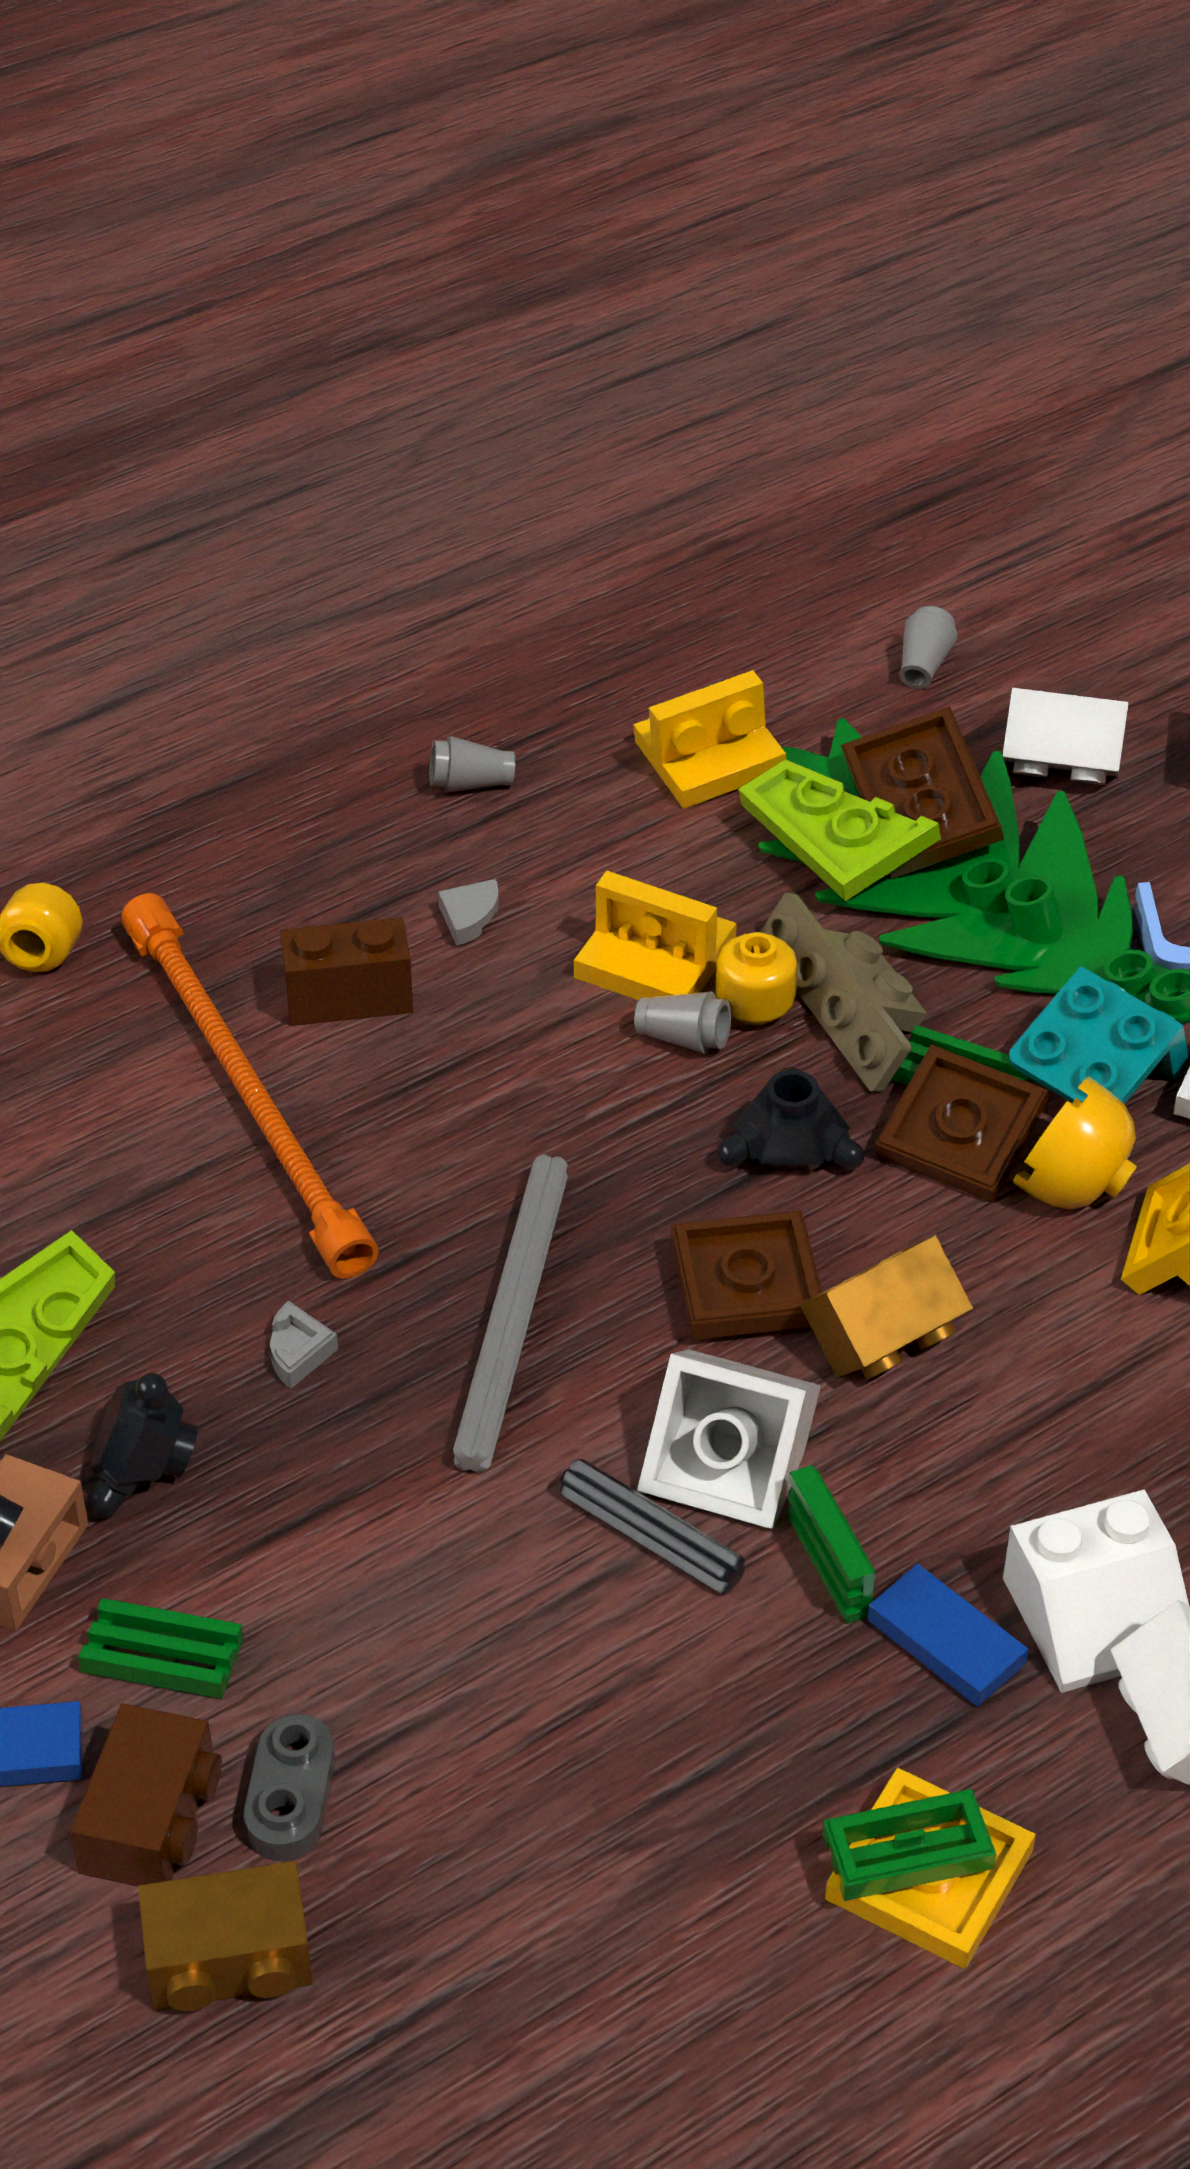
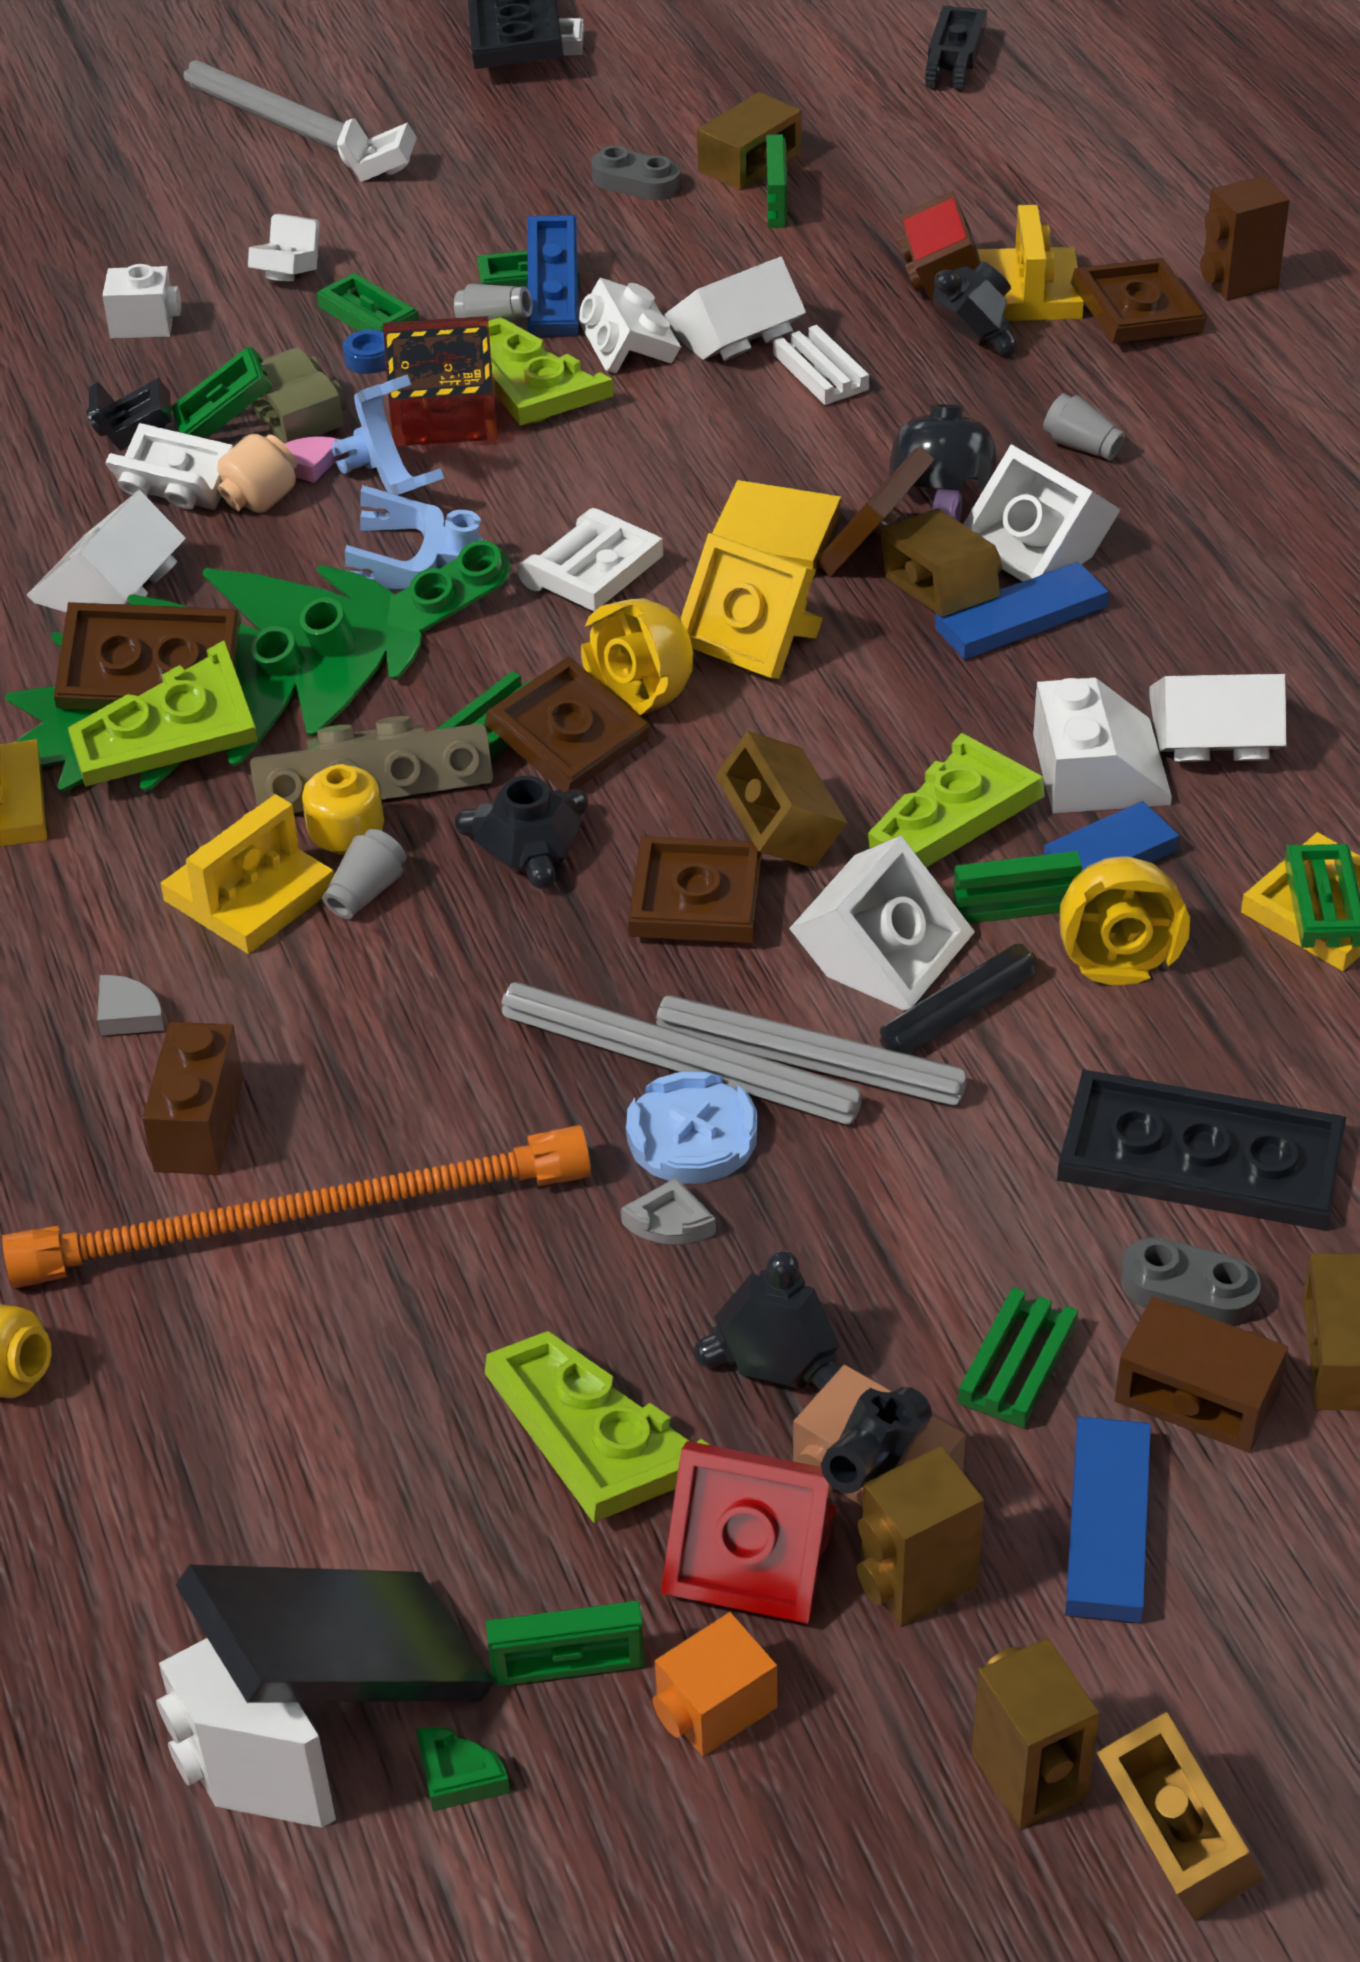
camera: 75 degrees left, 0 degrees up
(417, 1340) = (692, 1128): none -> light blue tile
(488, 1783) = (1203, 1149): none -> black tile
(542, 1417) = (815, 1050): none -> light grey axle
(788, 1632) = (1123, 920): none -> yellow cylinder
(953, 1475) = (959, 801): none -> lime wing
(1099, 1034) = (519, 619): teal bracket -> none

